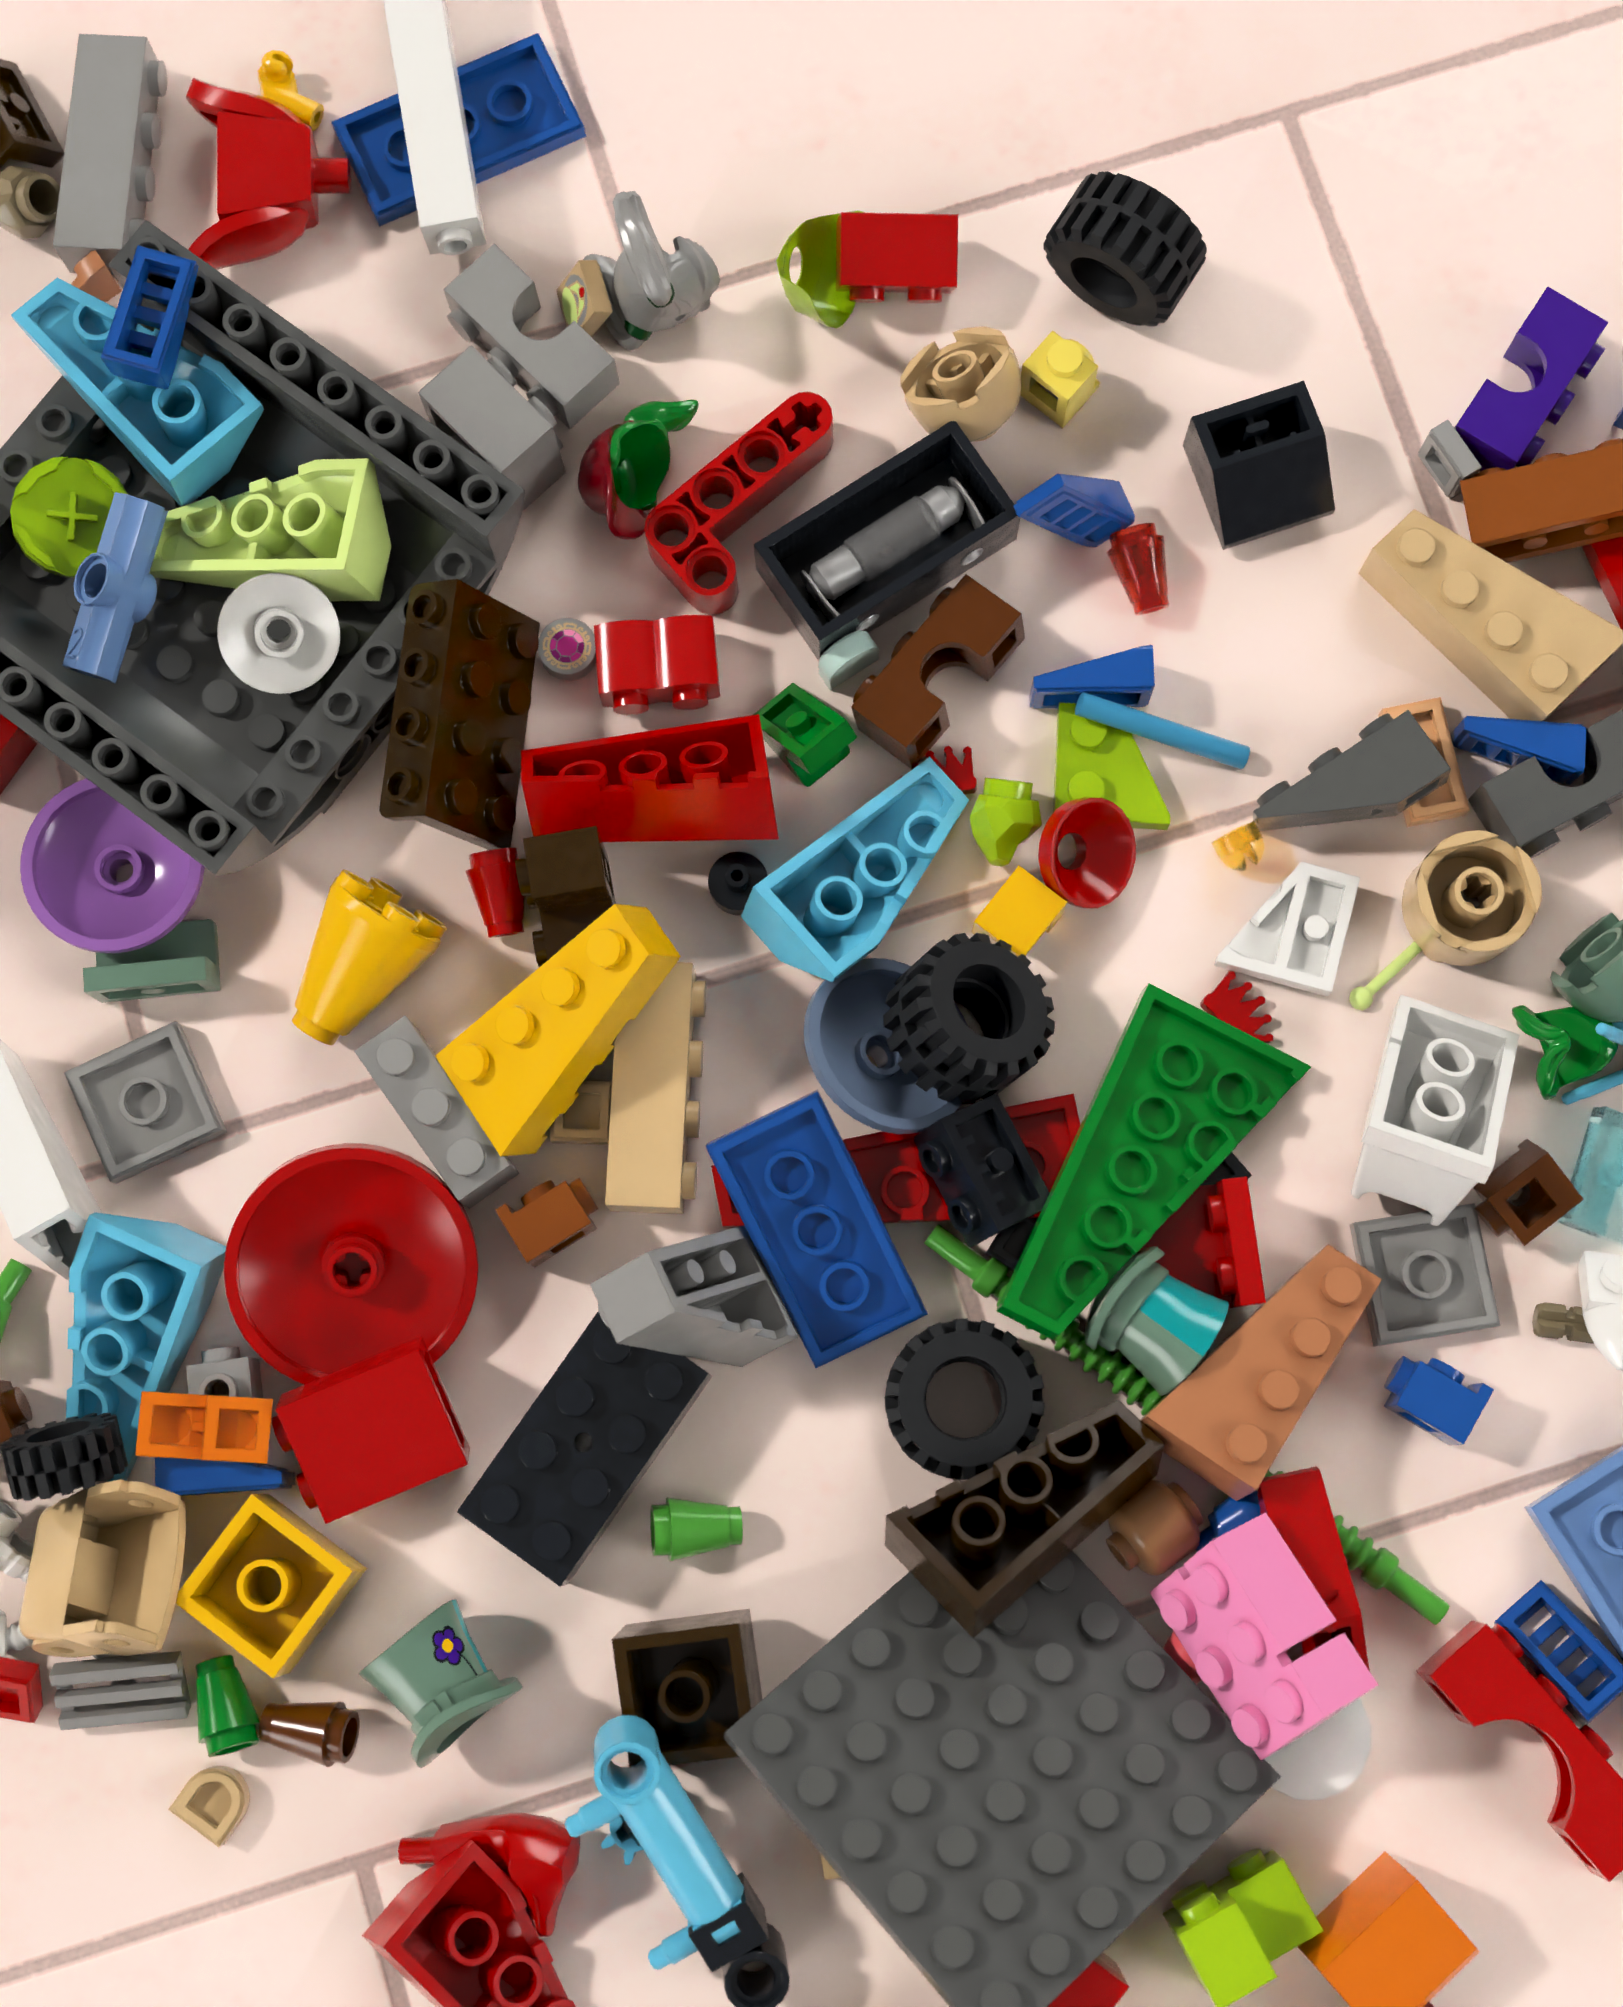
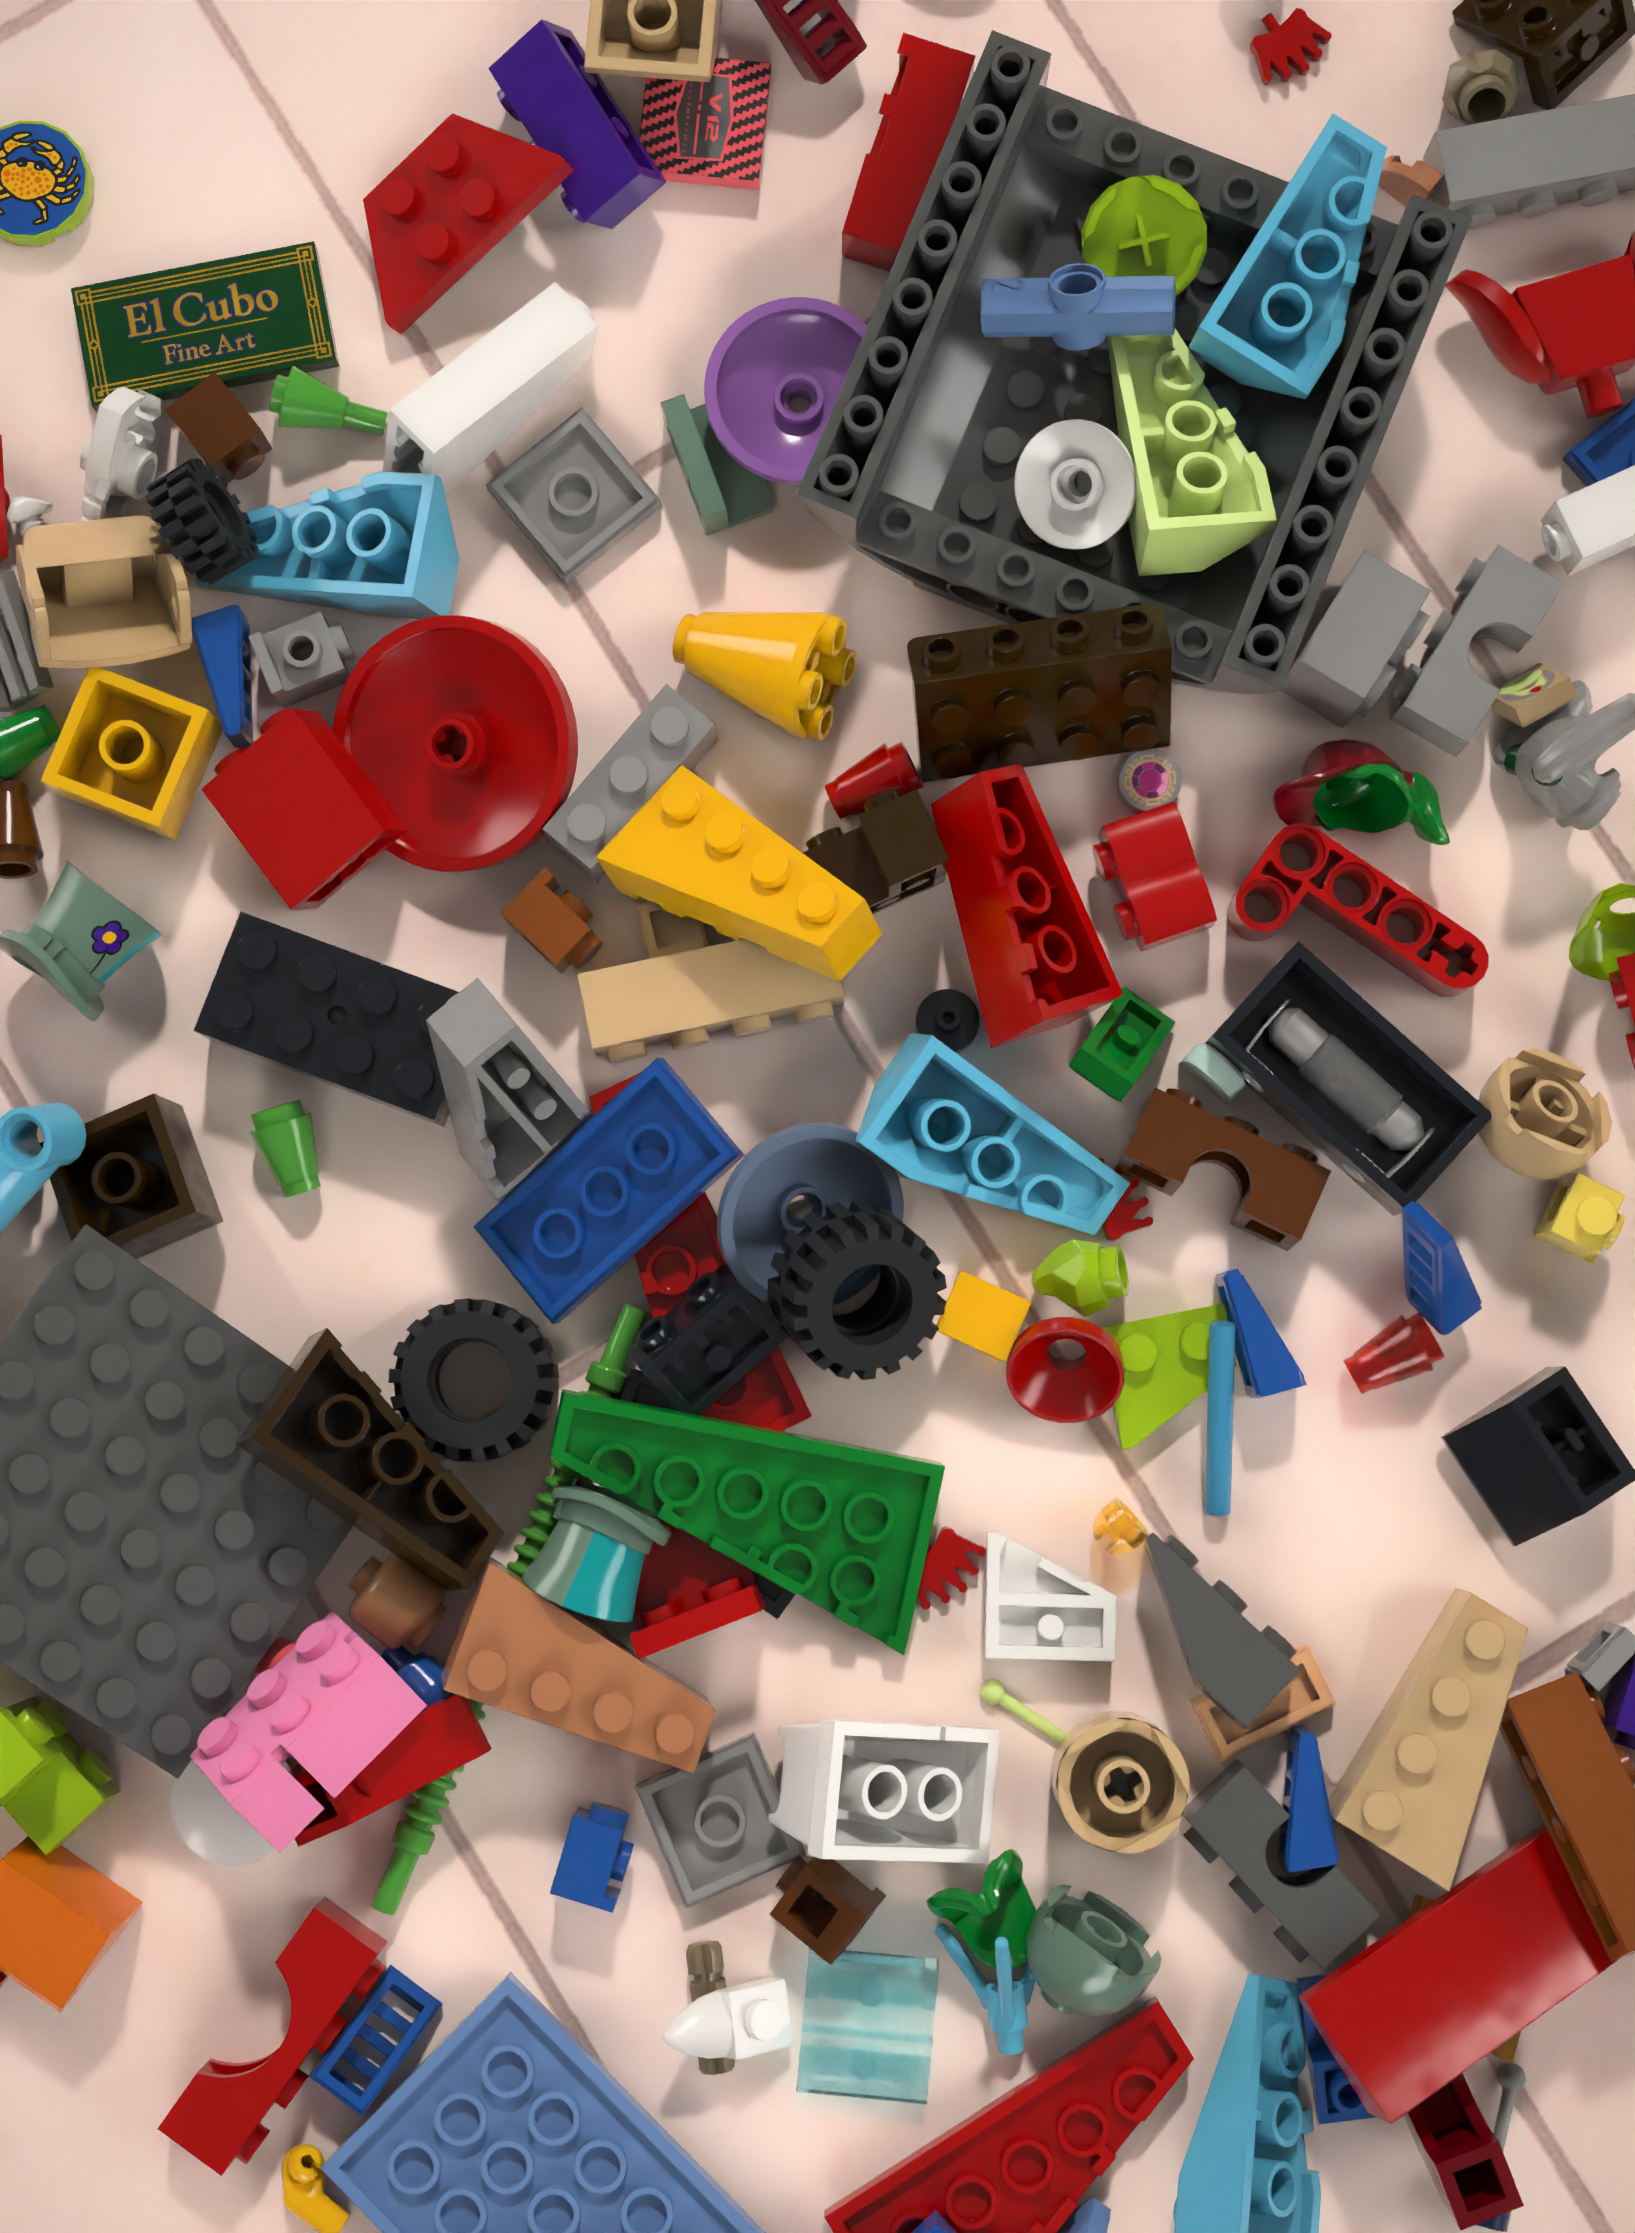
camera: 75 degrees right, 5 degrees up
(123, 335) = (1364, 278): blue slope -> none
(204, 1427) = (261, 645): orange slope -> none

